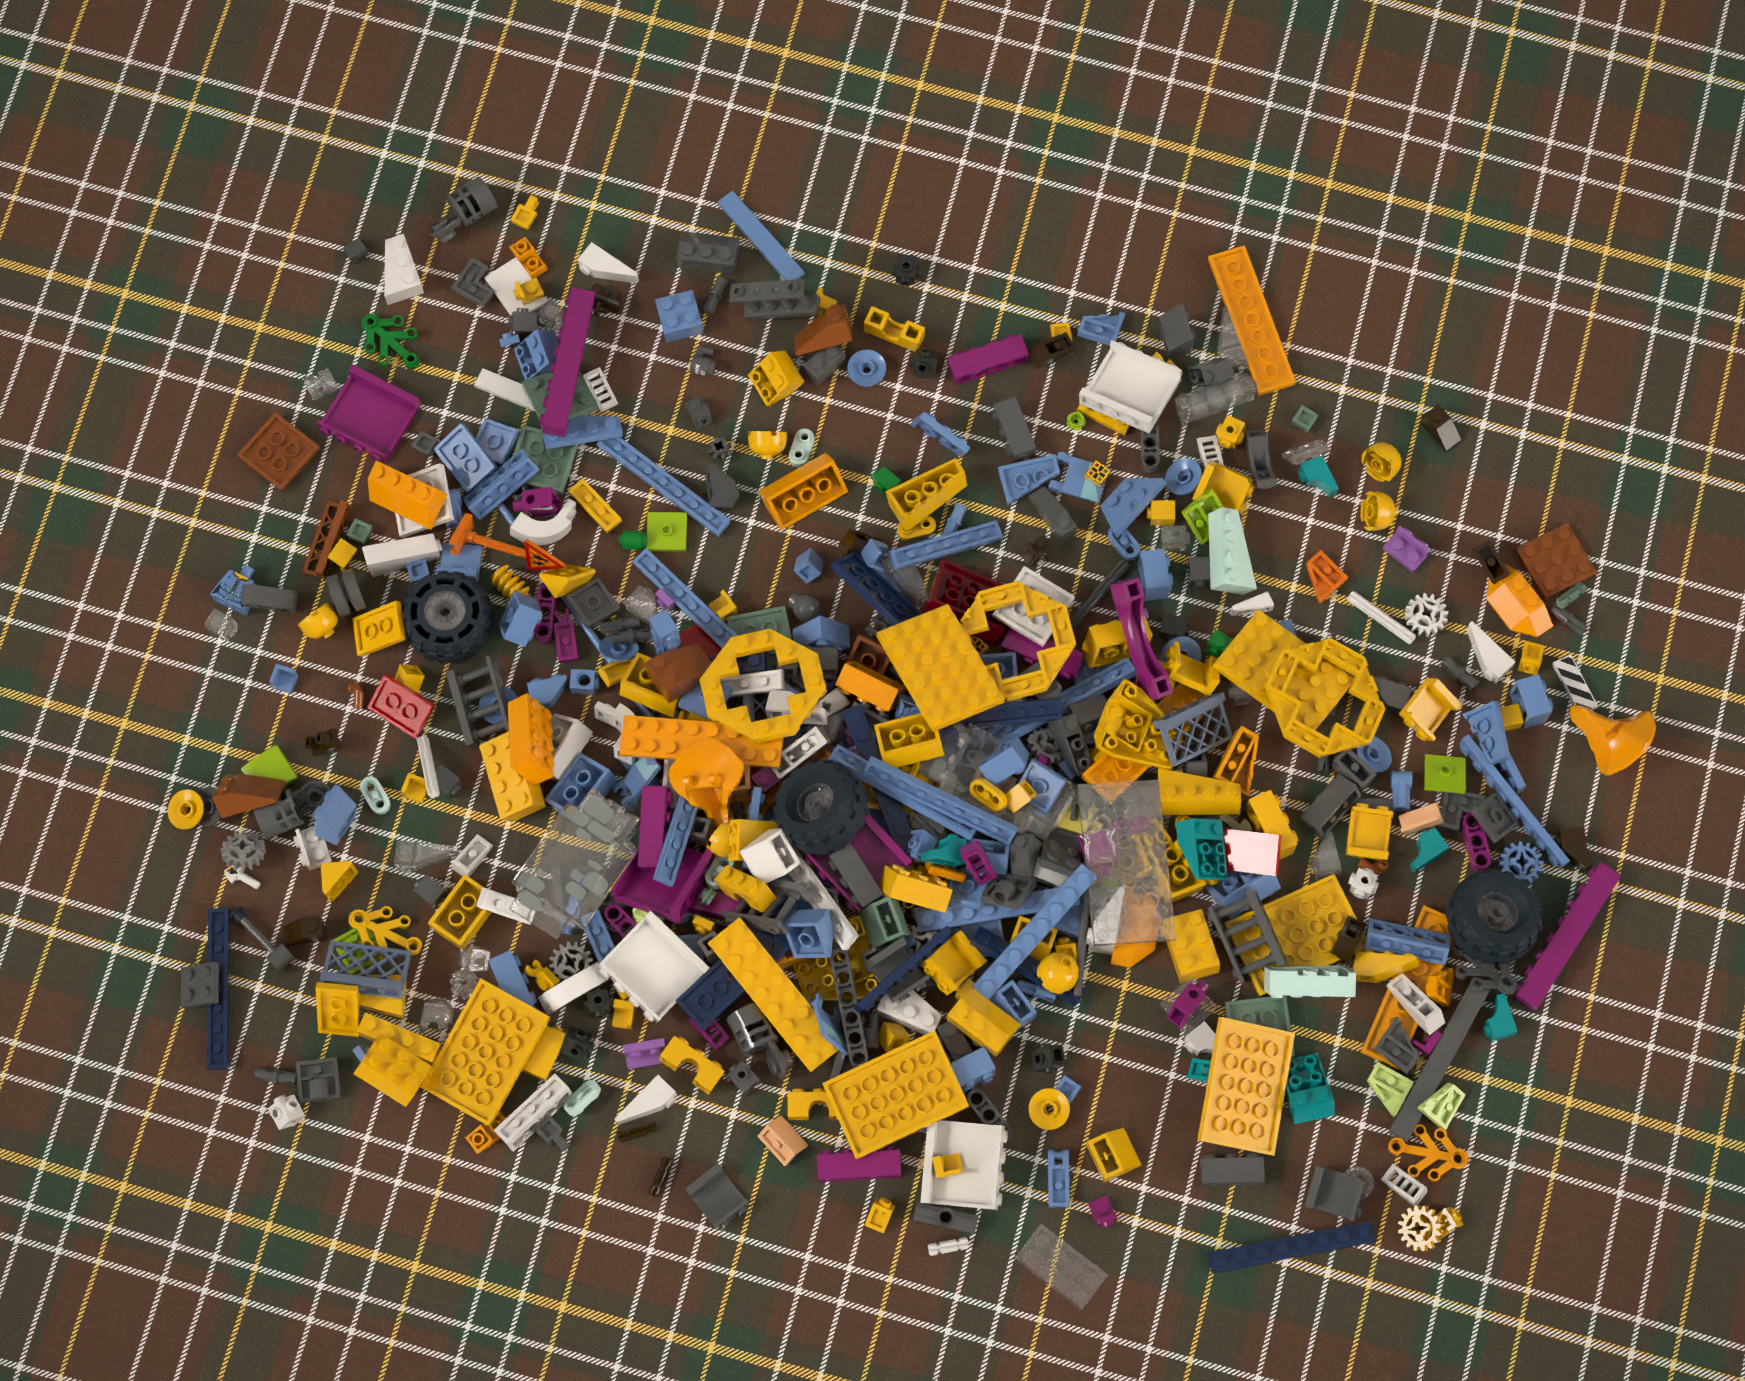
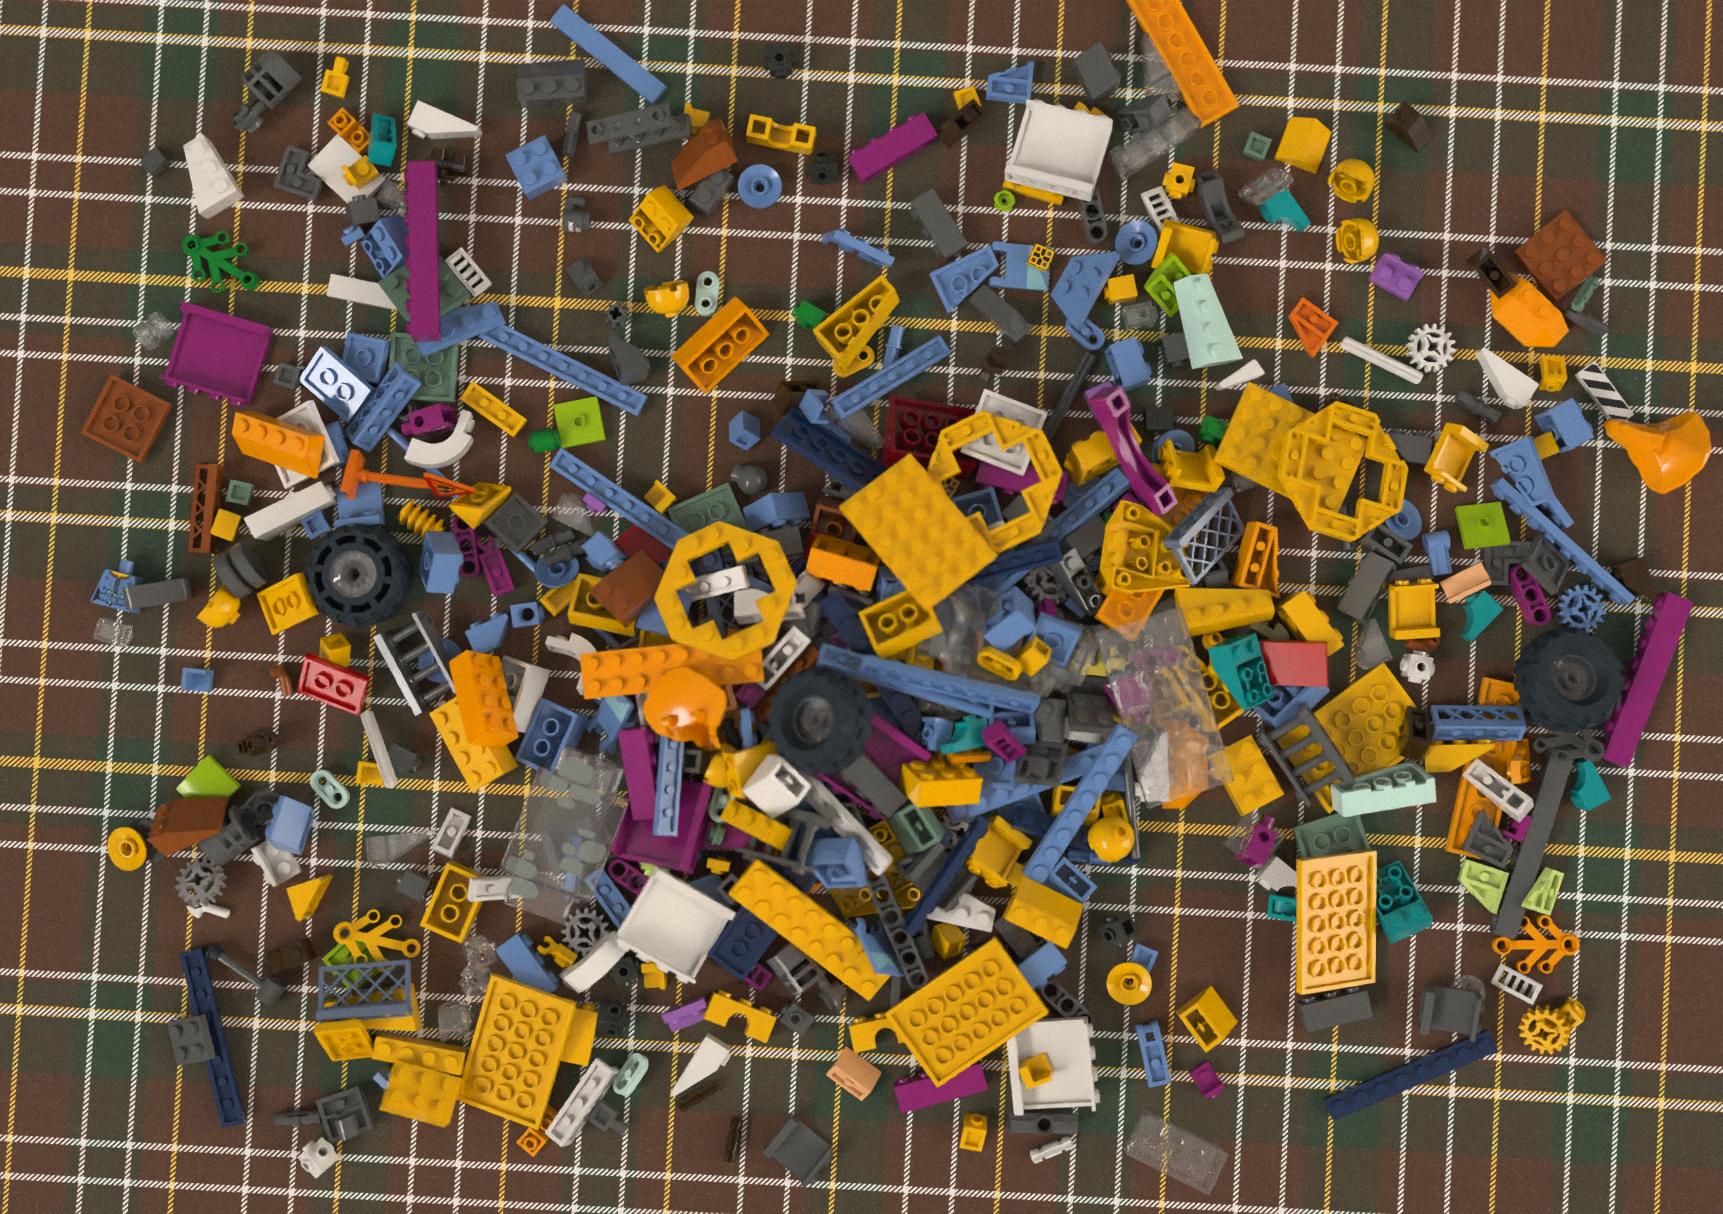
camera: 15 degrees left, 15 degrees up
(553, 269) = (382, 140): none -> teal arch
(1347, 424) = (1303, 143): none -> yellow slope

